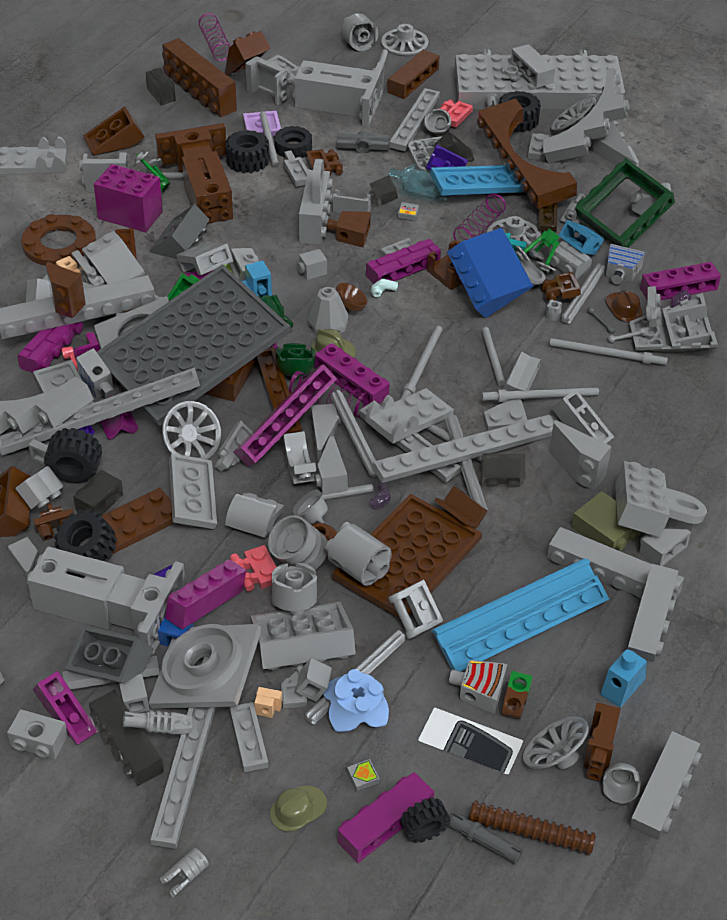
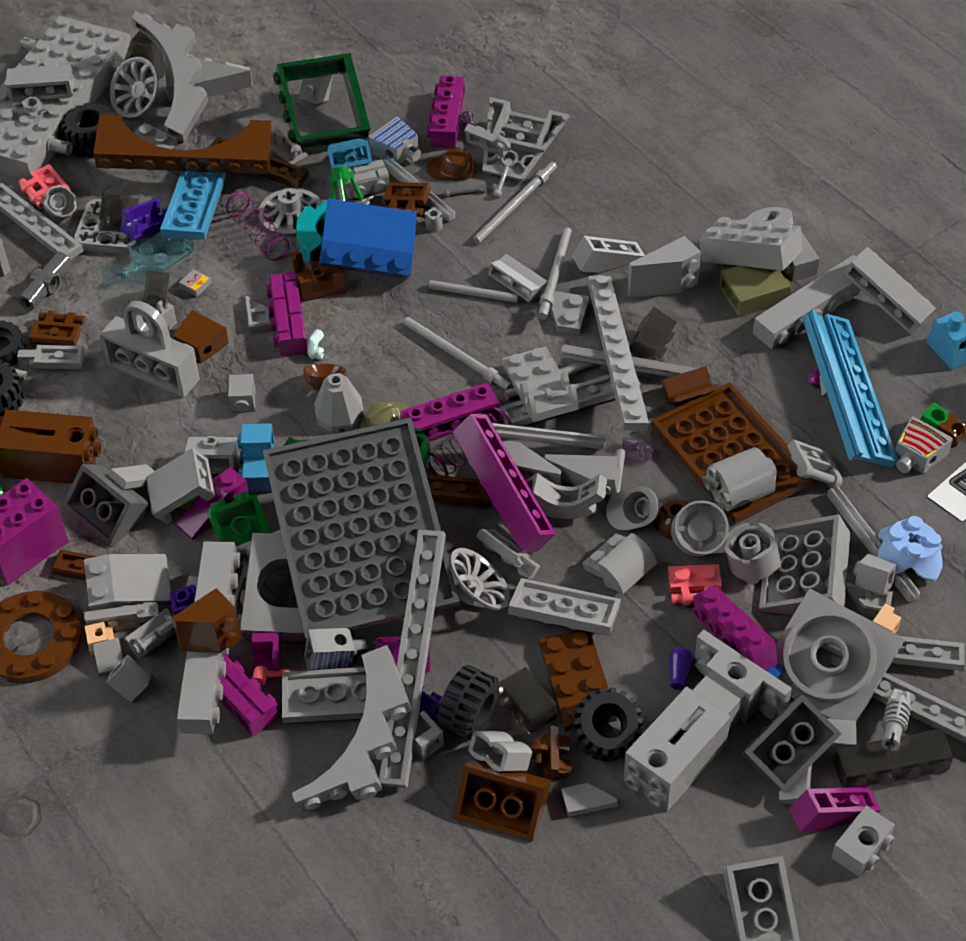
camera: 65 degrees left, 5 degrees up
(203, 233) = (131, 476): none -> light grey tile

